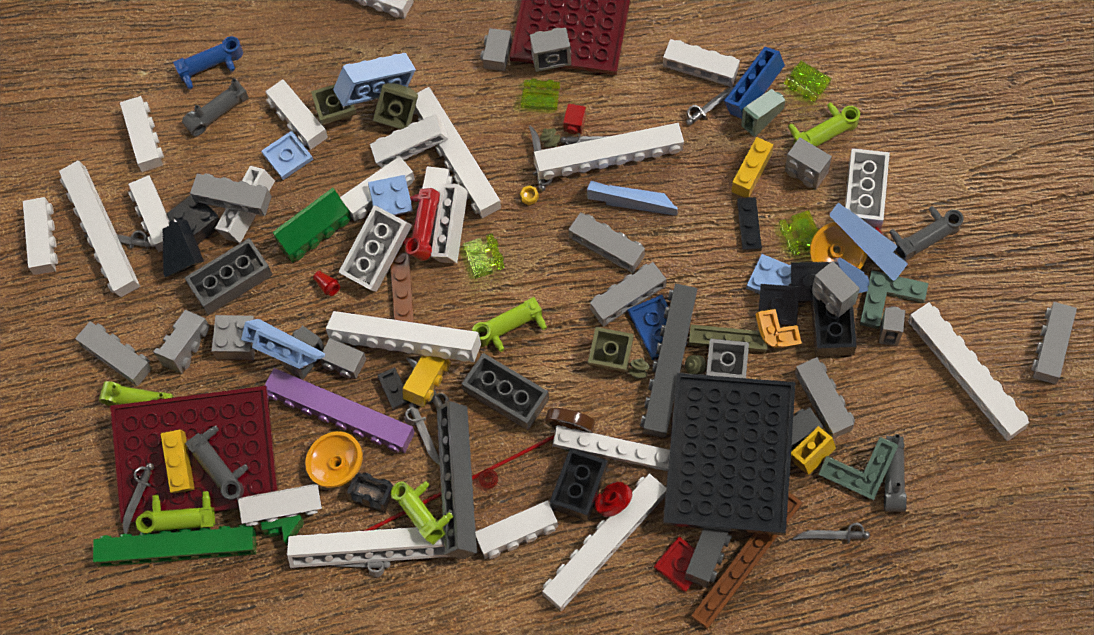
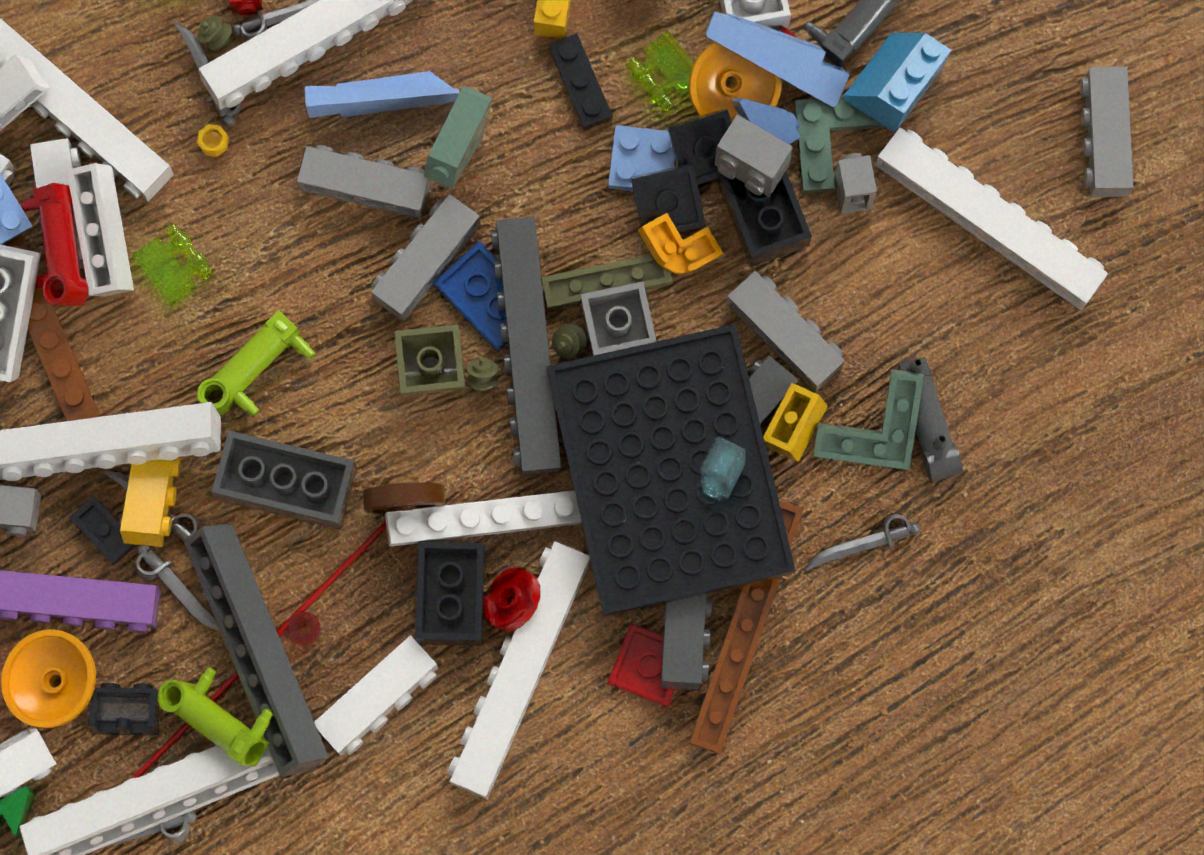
camera: 25 degrees left, 10 degrees up
(668, 232) = (458, 137): none -> sand green slope
(760, 458) = (722, 468): none -> clear light blue brick
(936, 275) = (897, 77): none -> dark azure slope

